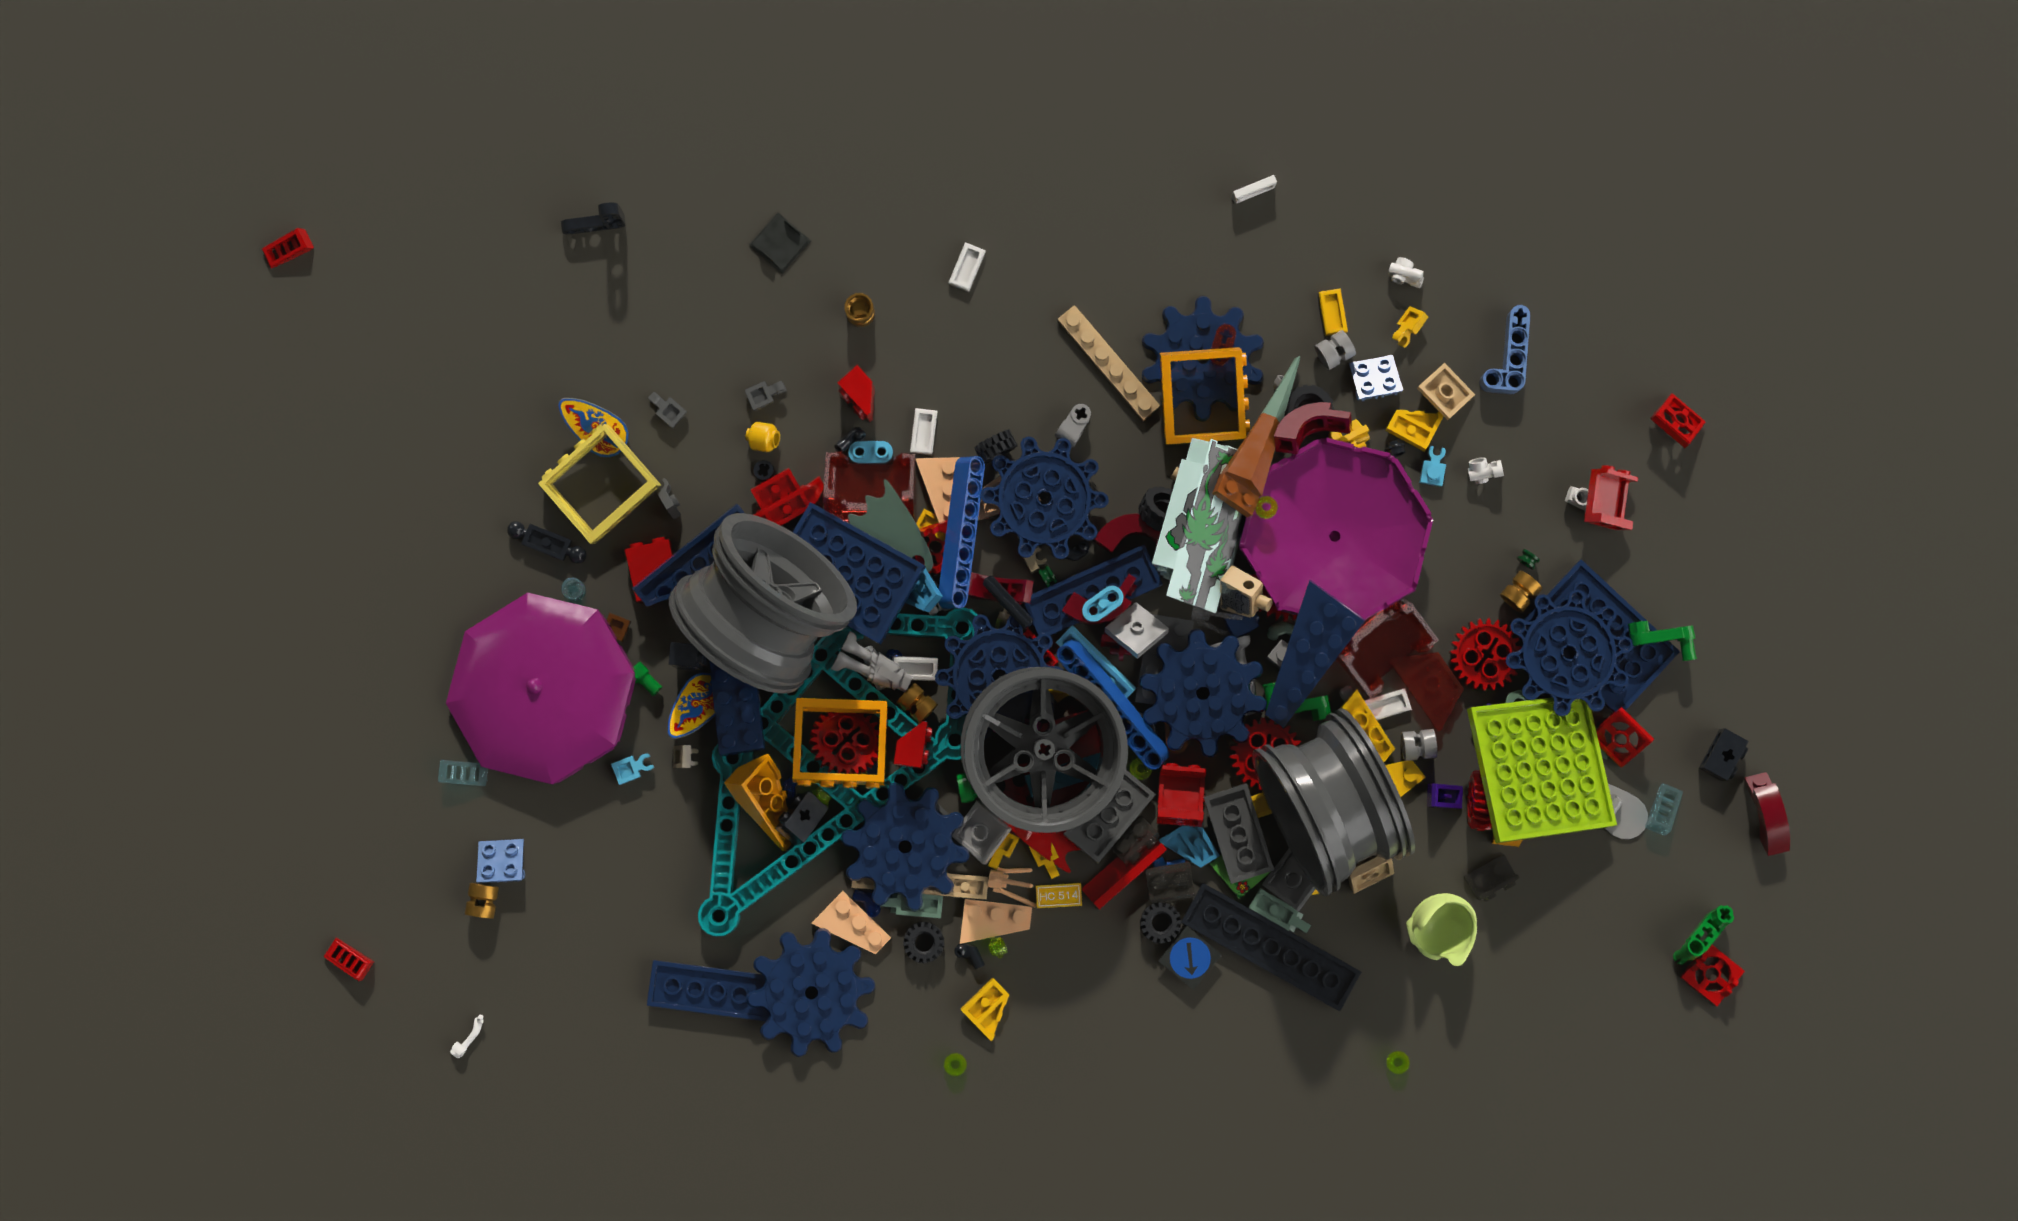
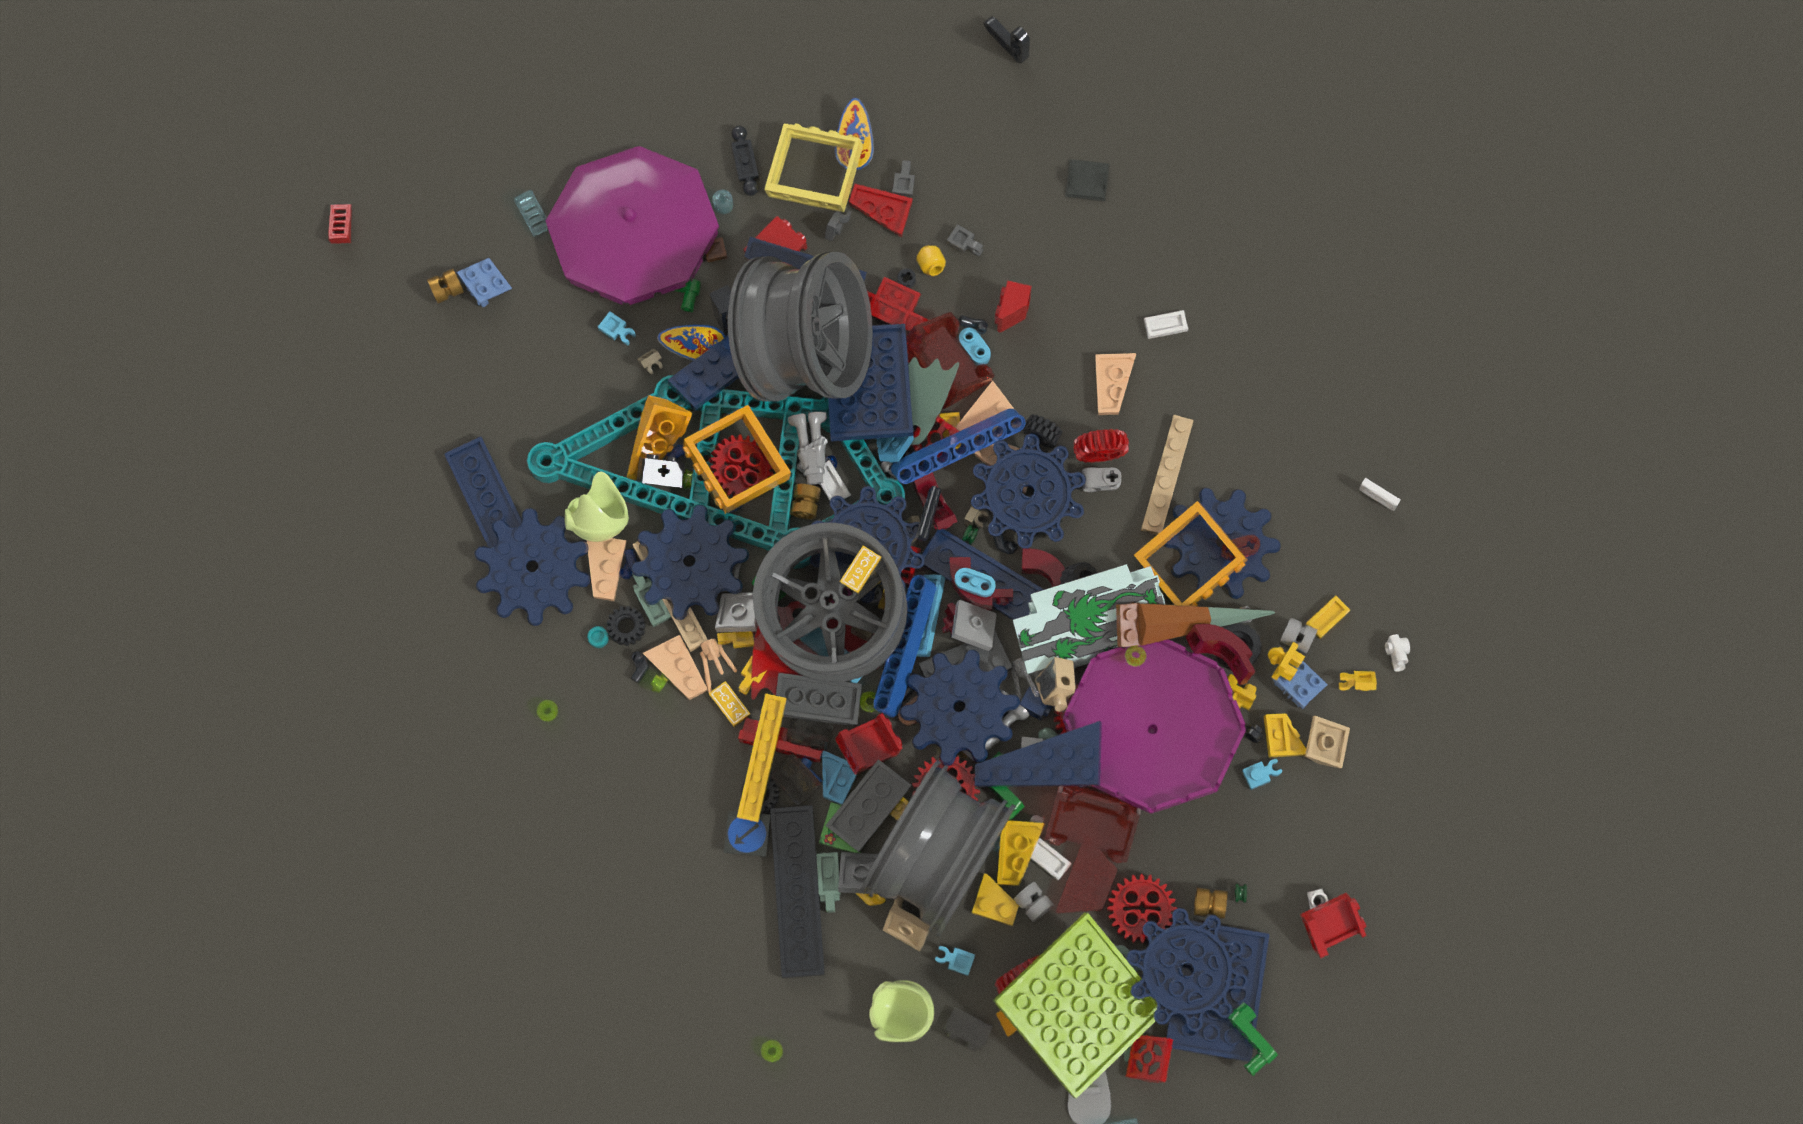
camera: 55 degrees right, 10 degrees down
(459, 1049) = (323, 344): white piece -> none
(679, 446) = (883, 207): none -> red wing
(804, 900) = (599, 513): none -> yellowish green piece
(859, 310) = (1076, 266): pearl gold wheel -> none
(911, 747) = (769, 513): red slope -> none
(916, 974) = (598, 637): none -> teal tile
(923, 431) = (1017, 374): white tile -> none
(986, 1007) = (606, 705): yellow wing -> none
(988, 352) = (1111, 380): none -> light nougat wing
(1043, 704) = (860, 569): none -> yellow tile
(1046, 404) = (1101, 445): none -> red gear
(1134, 901) = (761, 758): none -> yellow plate
(1349, 378) = (1278, 656): none -> yellow hips
(1426, 845) = (959, 960): none -> medium azure plate
(1444, 796) = (1007, 949): dark purple slope -> none
(1481, 470) = (1284, 810): white plate -> none
(1511, 349) = (1396, 771): medium blue beam -> none
(1692, 421) = (1445, 938): red piece -> none

